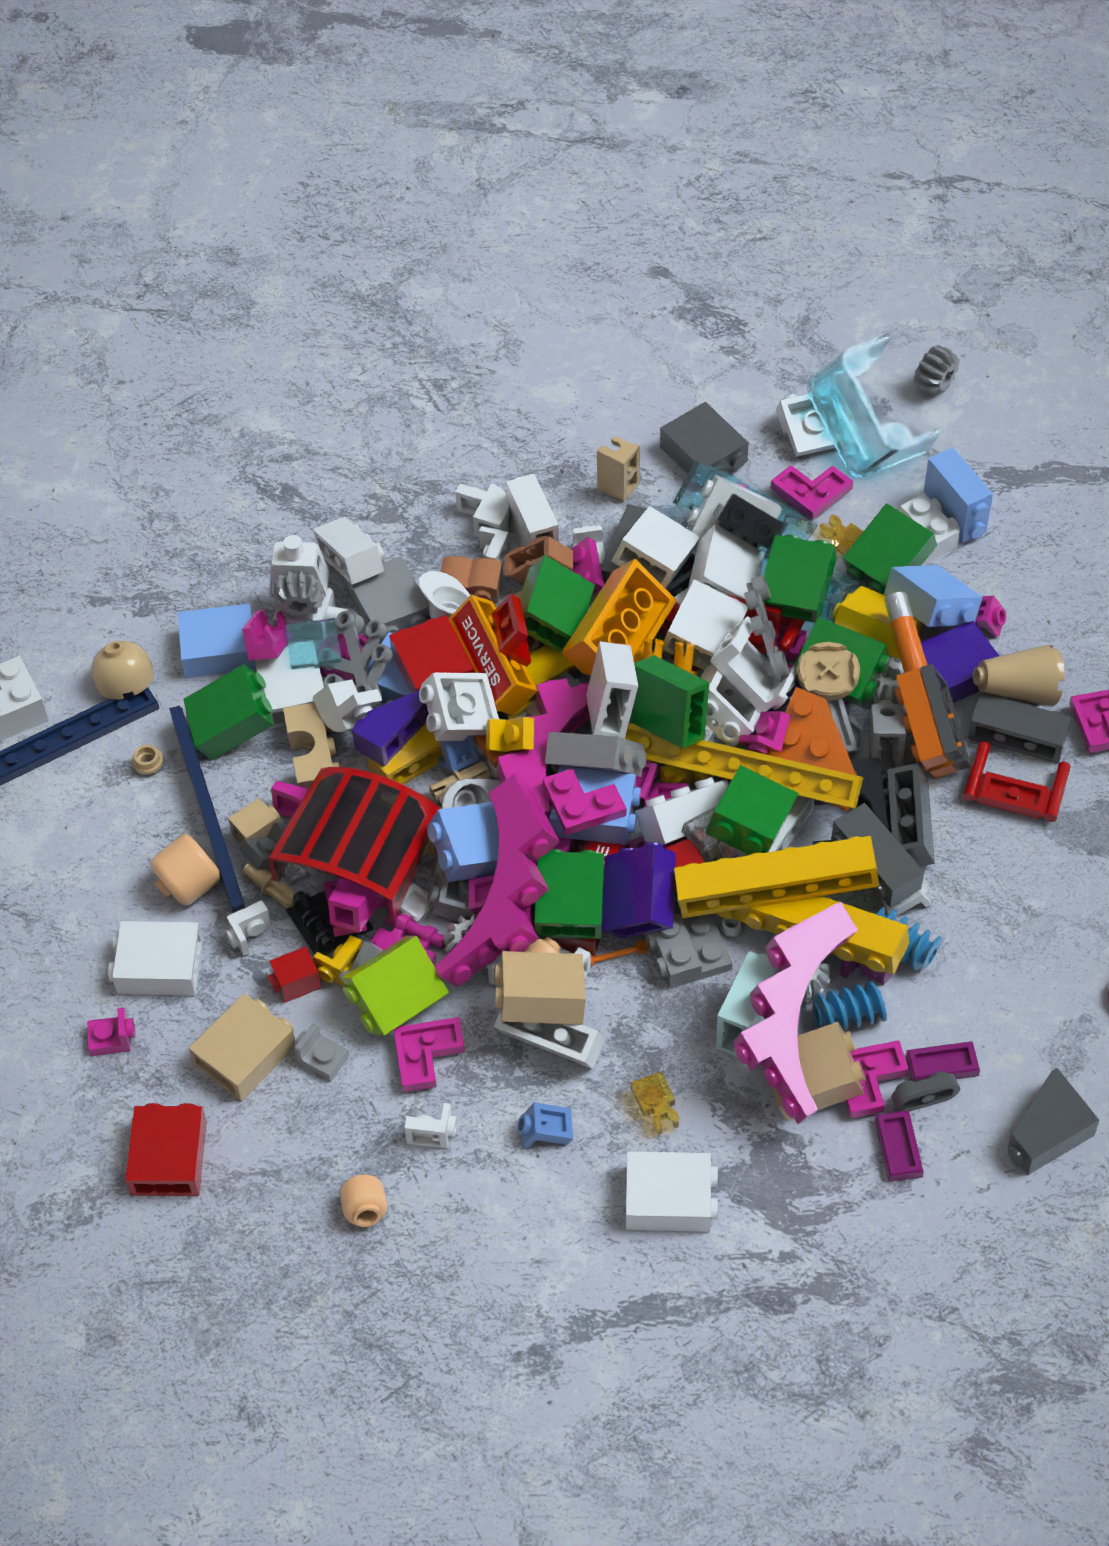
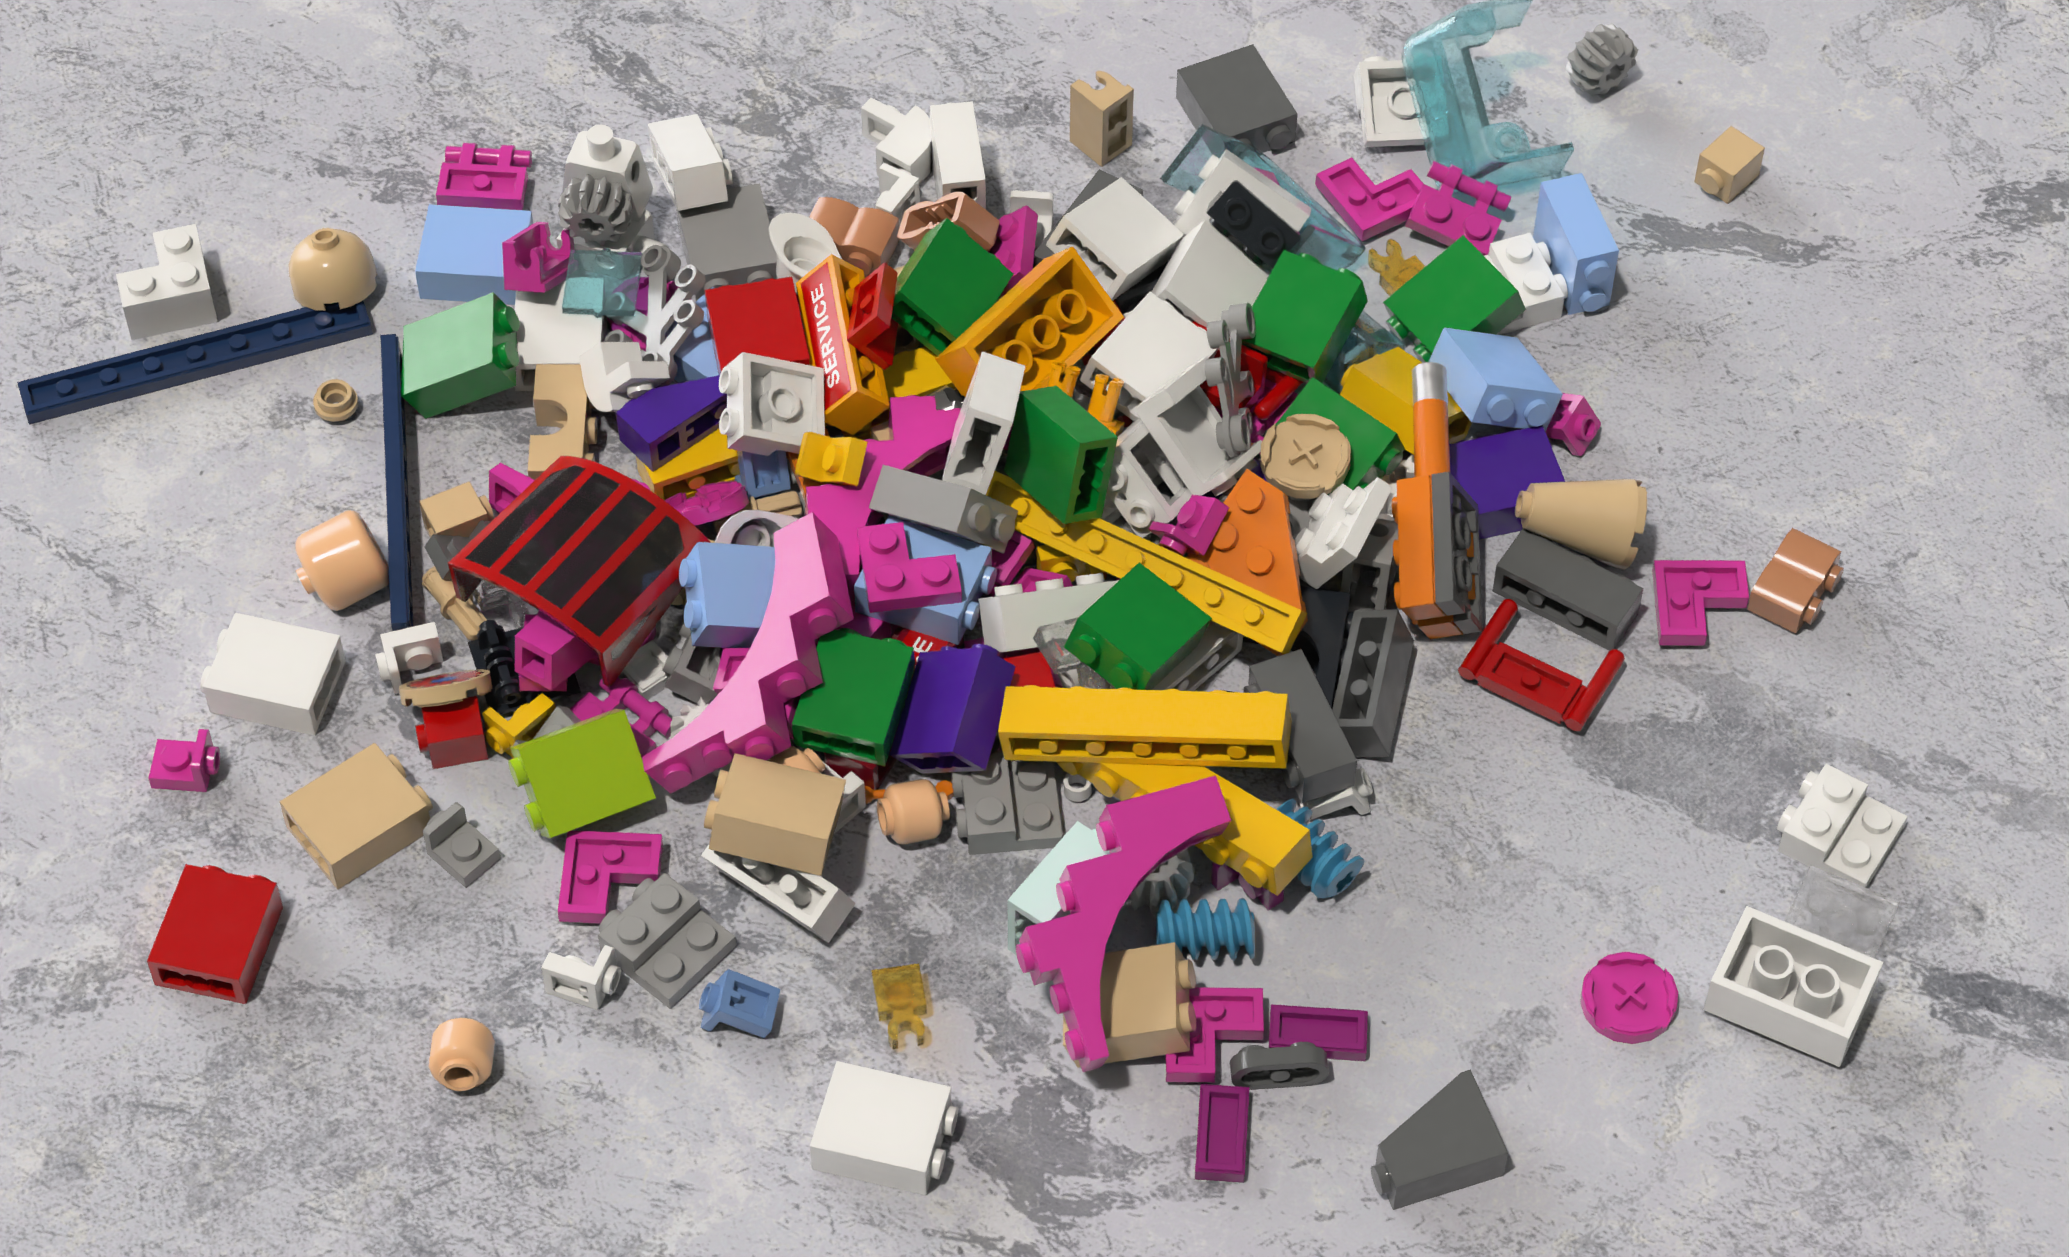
camera: 10 degrees right, 0 degrees up
(208, 586) = (484, 177): none -> dark pink plate
(281, 944) = (444, 688): none -> tan tile
(430, 779) = (711, 502): none -> dark pink tile
(481, 1090) = (665, 939): none -> light grey plate
(626, 966) = (912, 811): none -> light nougat head
(866, 716) = (1338, 530): none -> white plate
(868, 494) = (1448, 218): none -> dark pink plate
(1038, 424) = (1729, 164): none -> tan brick

